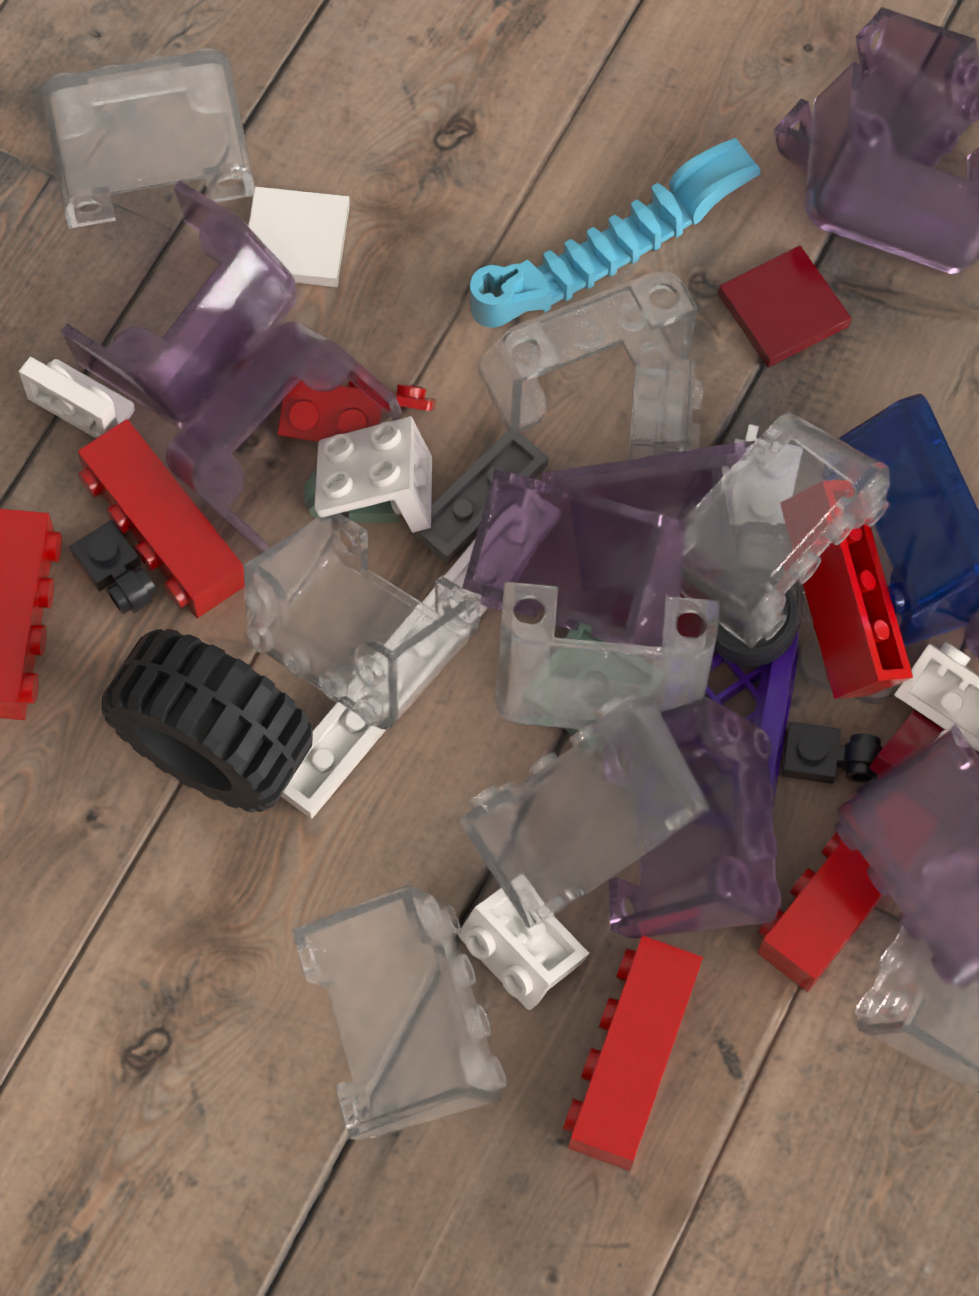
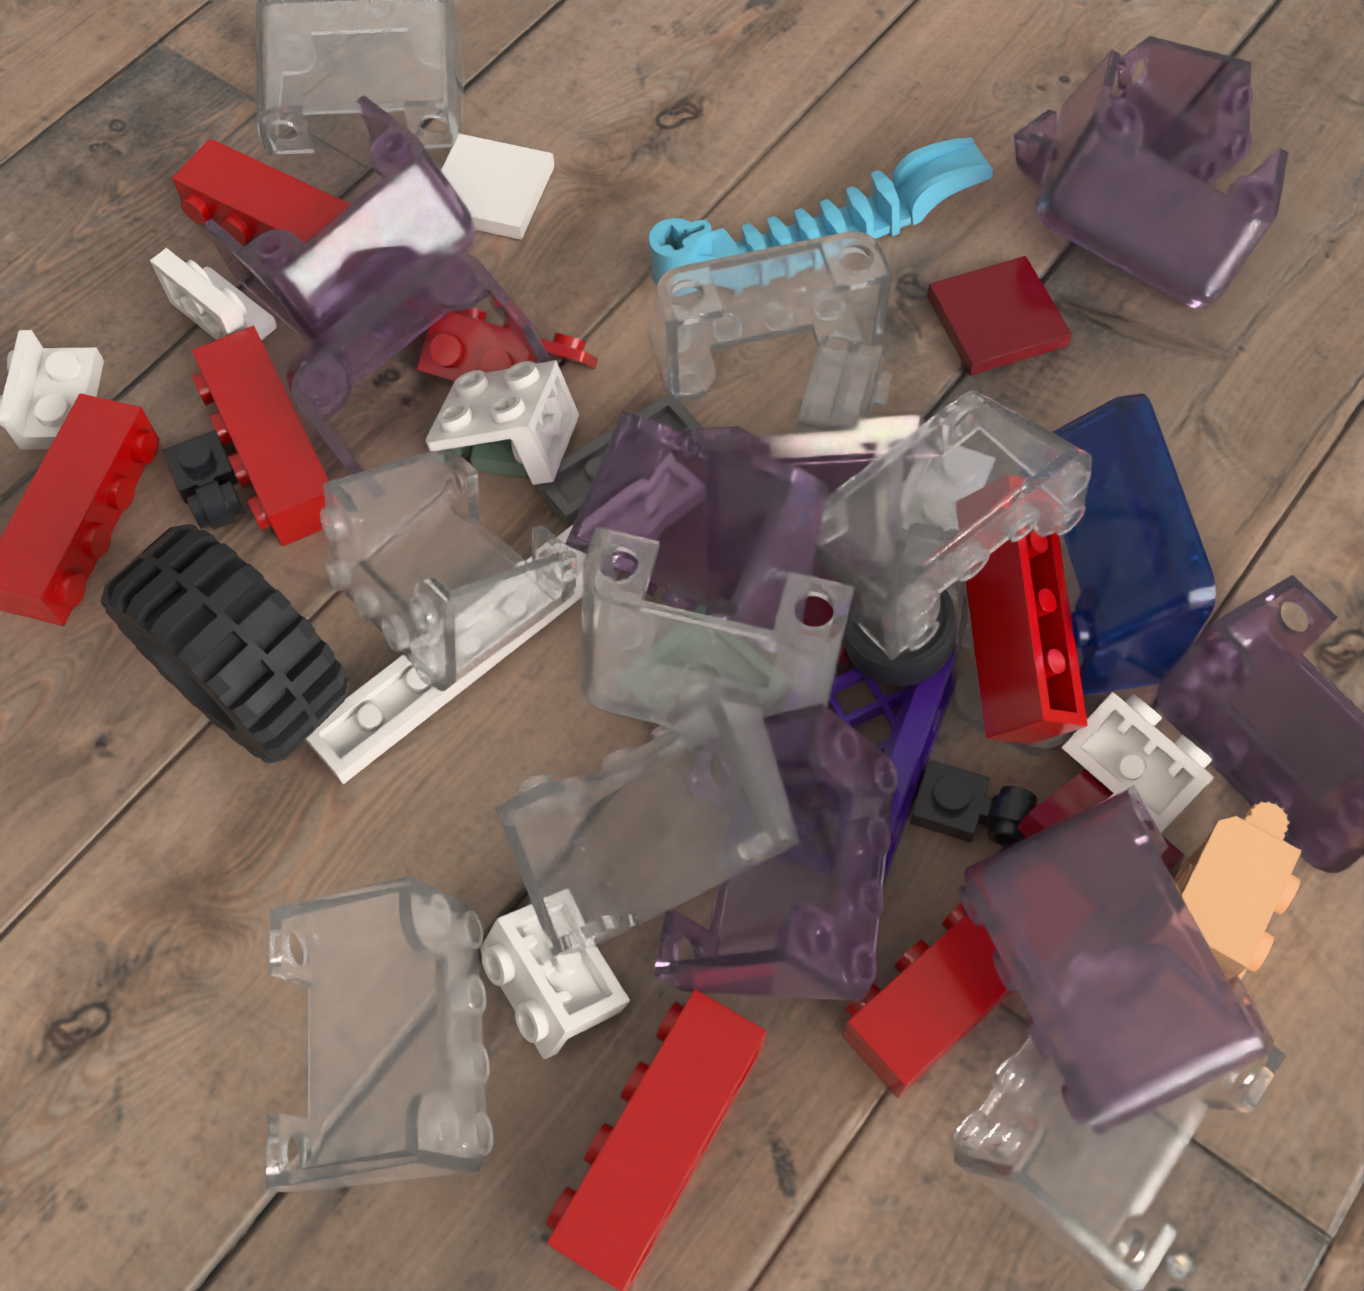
camera: 15 degrees right, 5 degrees down
(92, 289) = (250, 196): none -> red brick

